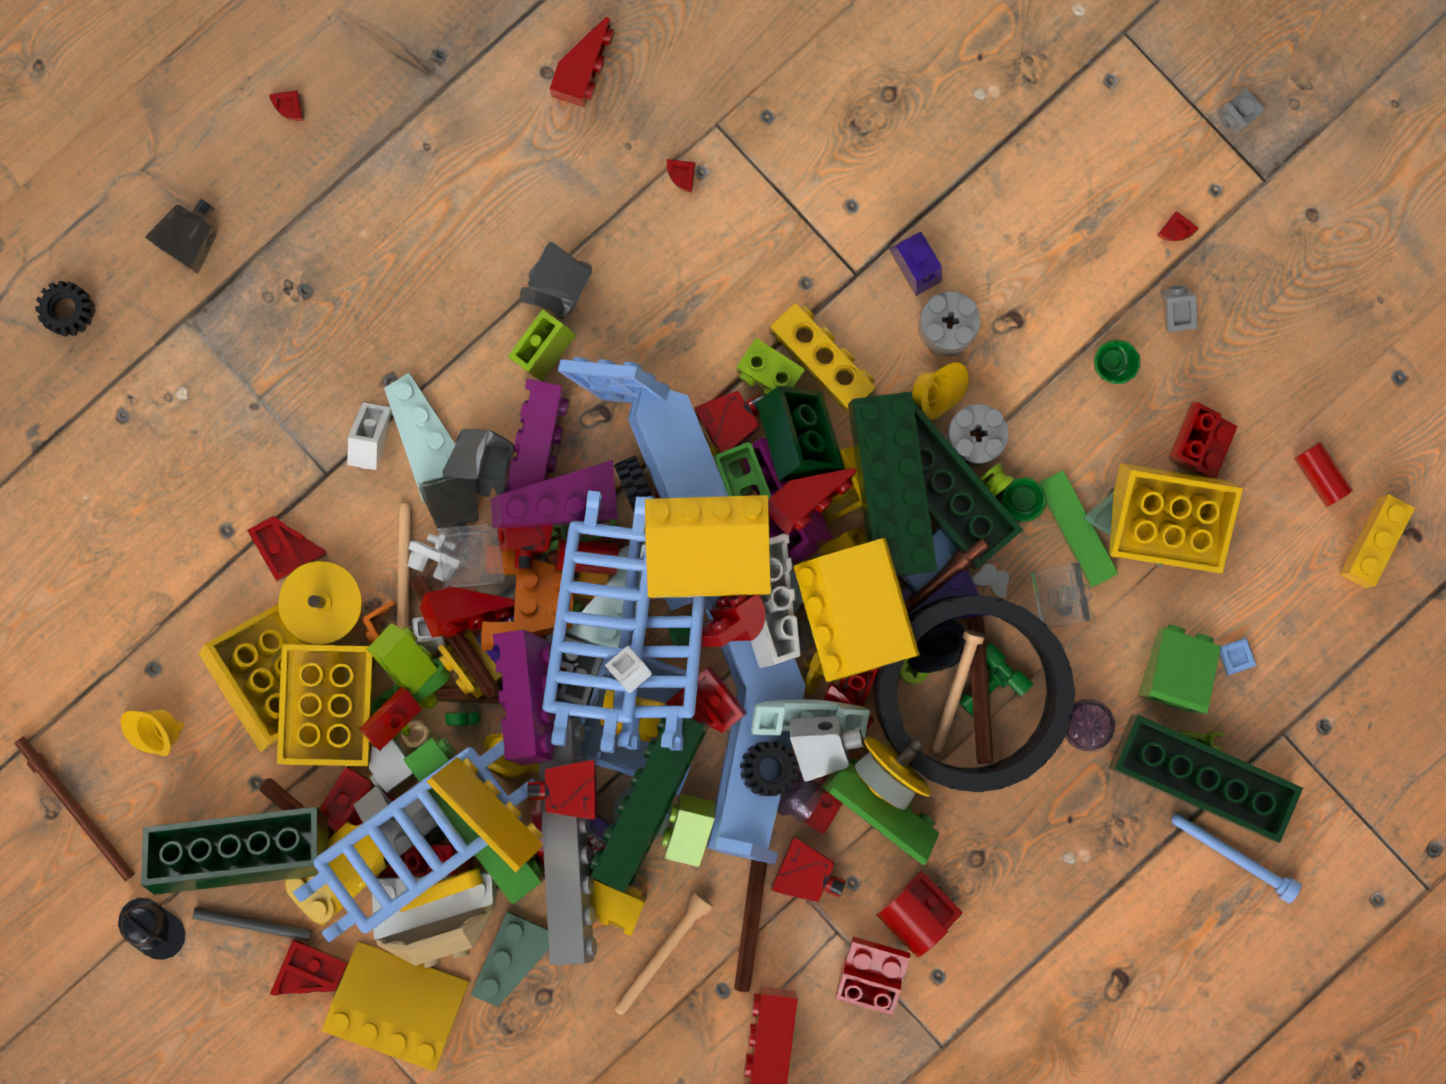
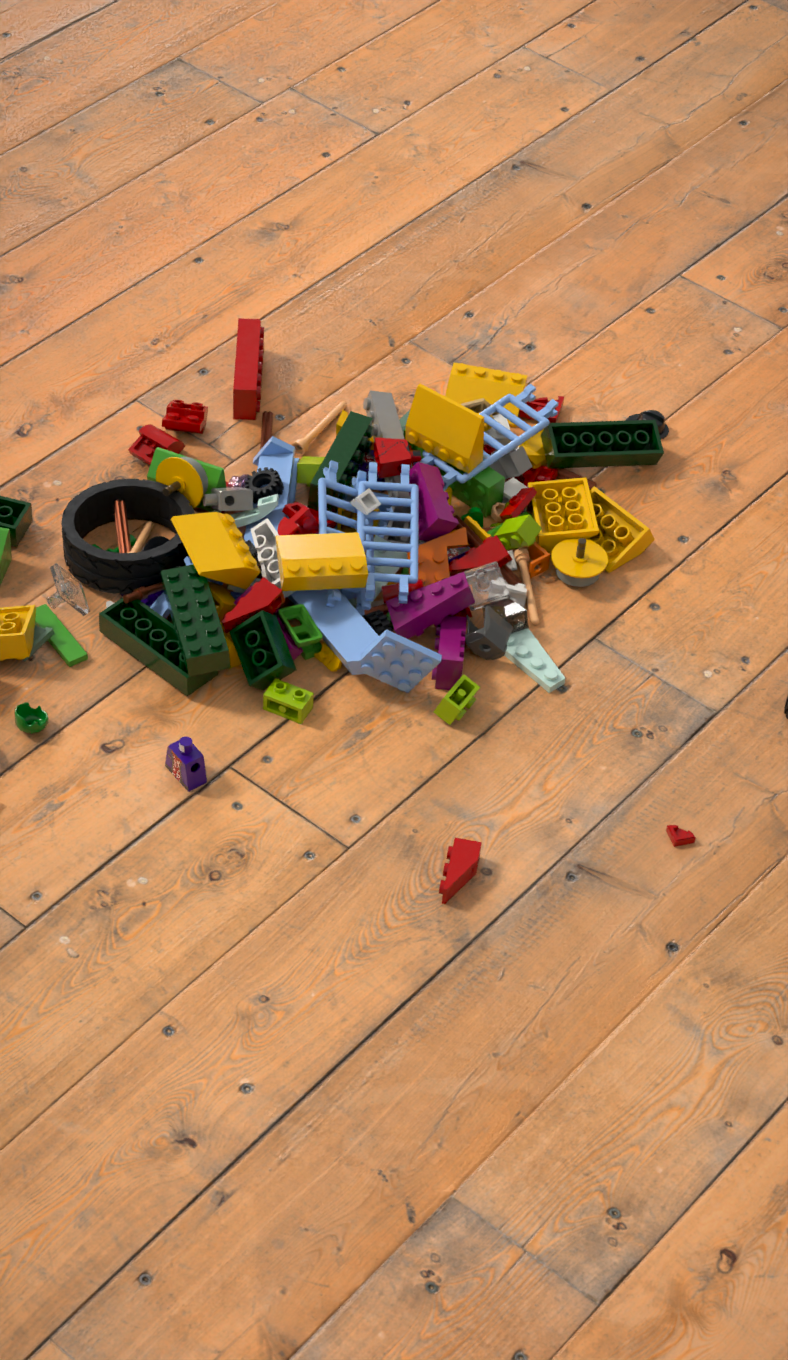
camera: 170 degrees right, 40 degrees down
(38, 764) = (741, 489): copper bar -> none
(151, 730) = (668, 504): yellow piece -> none
(185, 234) = (733, 749): clear smoke torso -> none
(283, 547) = (612, 594): red wing -> none
(368, 436) = (569, 651): white slope -> none
(556, 281) = (453, 732): dark grey piece -> none
(681, 173) = (371, 814): red tile -> none
(729, 419) = (315, 672): red torso -> none
(785, 331) = (251, 709): yellow brick -> none
(806, 873) = (234, 459): red torso -> none
(934, 330) = (157, 730): light grey brick -> none
(941, 389) = (166, 696): yellow piece -> none
(987, 422) = (133, 672): light grey brick -> none
(997, 482) = (118, 652): lime wheel -> none
(1024, 499) = (97, 640): green hair -> none
(1090, 725) = (46, 536): piece -> none

